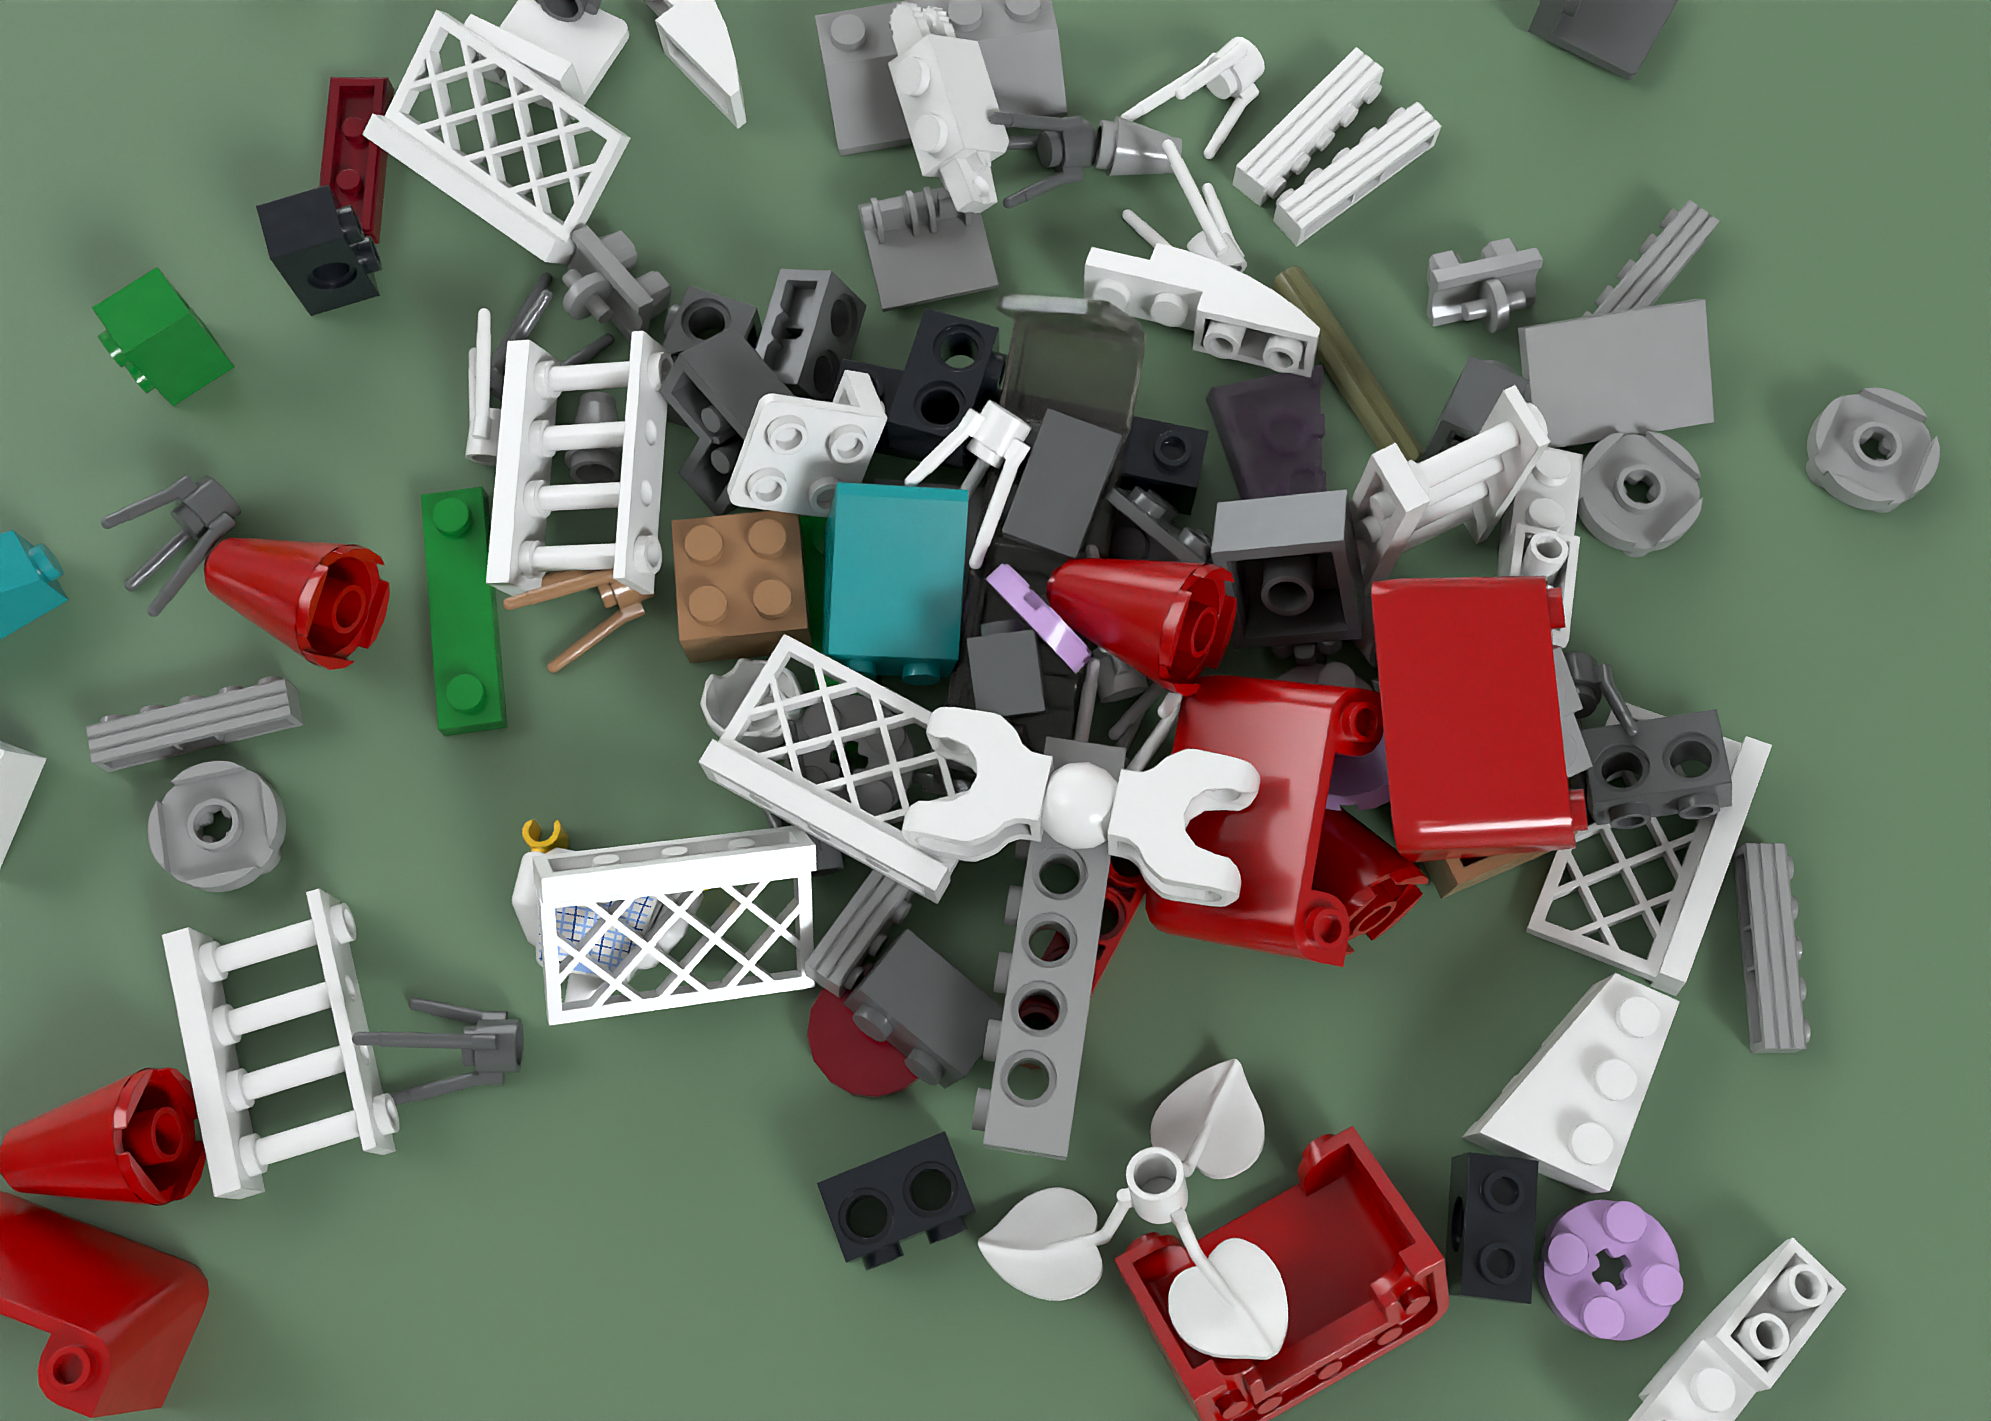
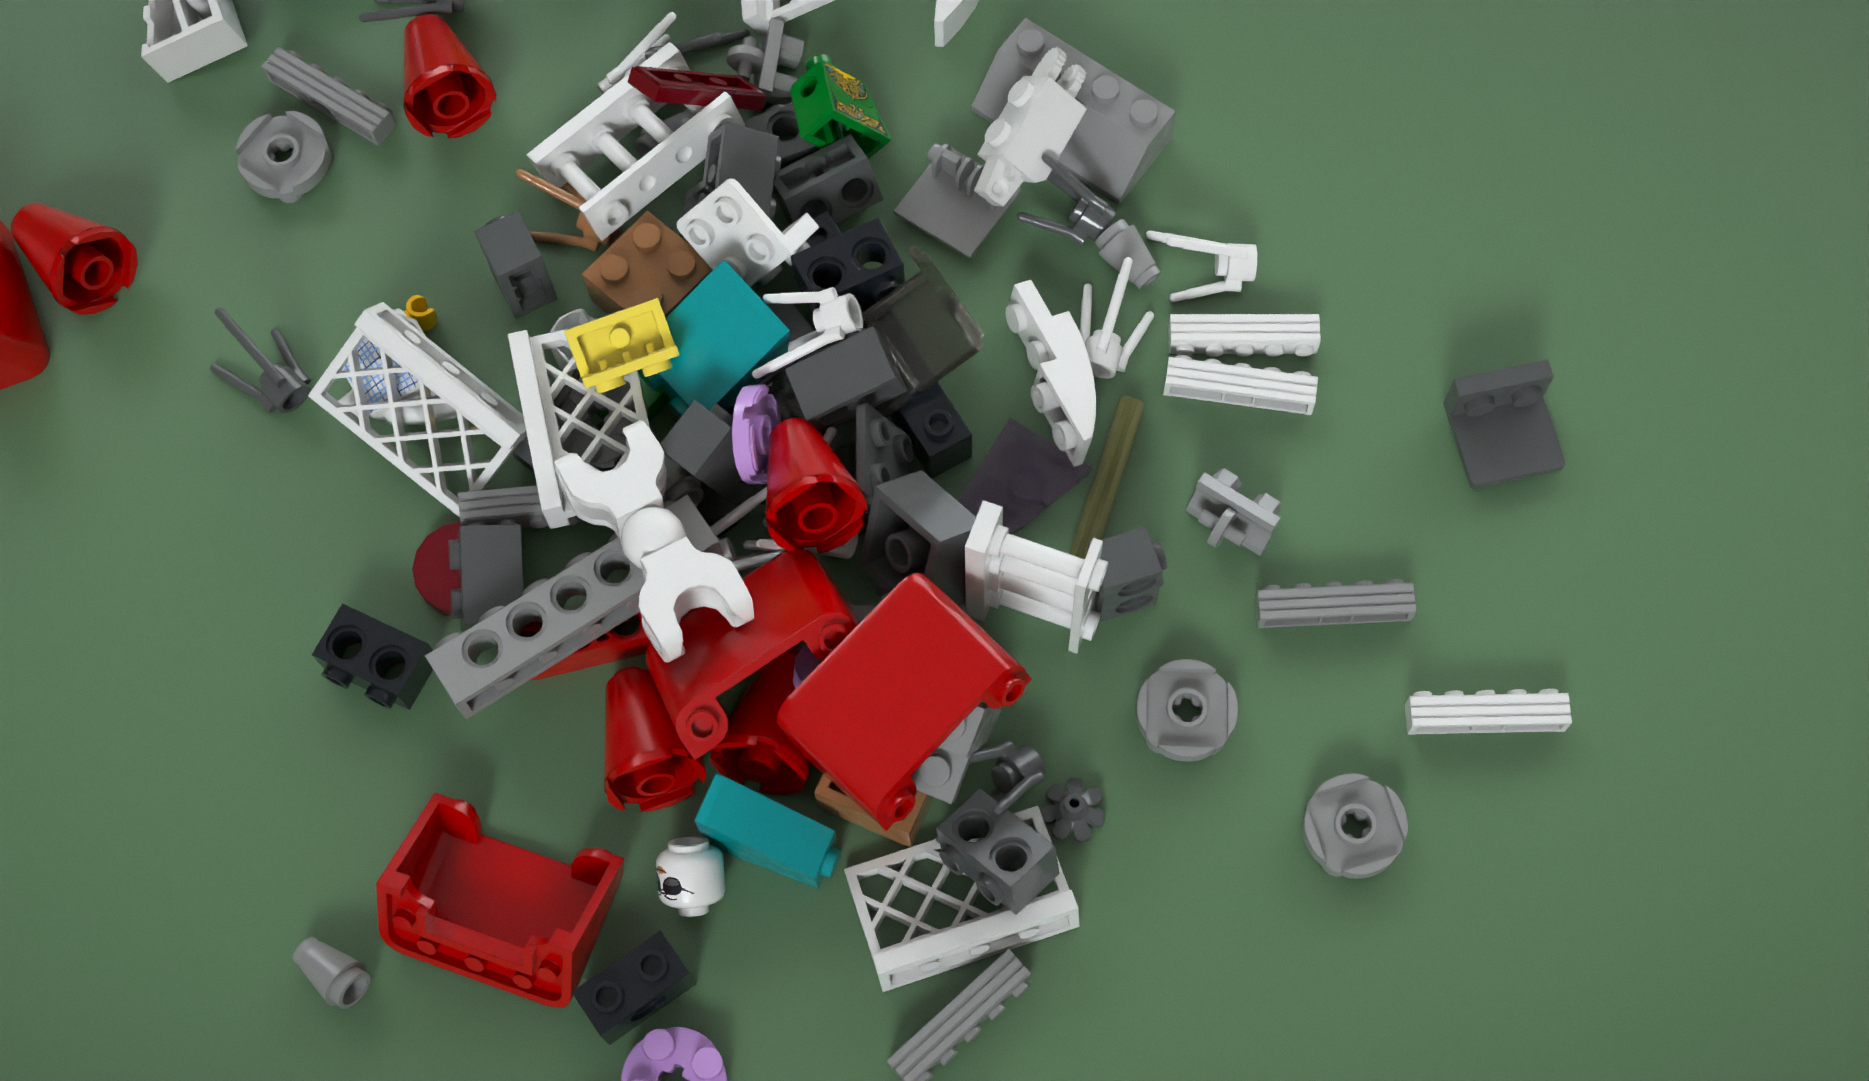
camera: 50 degrees right, 5 degrees down
(213, 1027) = (159, 260): white fence -> none
(462, 612) = (494, 179): green plate -> none
(591, 359) = (694, 87): none -> dark red tile
(598, 694) = (516, 264): none -> dark grey brick
(729, 258) = (834, 105): none -> green torso
(829, 661) = (622, 344): none -> light yellow bracket
(1225, 1303) = (461, 864): white plant -> none
(1239, 1001) = (641, 746): none -> red cone
(1422, 1076) = (690, 875): none -> white head
(1443, 966) = (767, 833): none -> teal slope
(1541, 528) = (1089, 675): white slope -> none
(1582, 1087) = (765, 971): white wedge -> none
(1619, 372) = (1247, 633): light grey tile -> none
(1646, 672) = (1069, 818): none -> dark grey plant
(1855, 251) = (1487, 712): none -> white piece

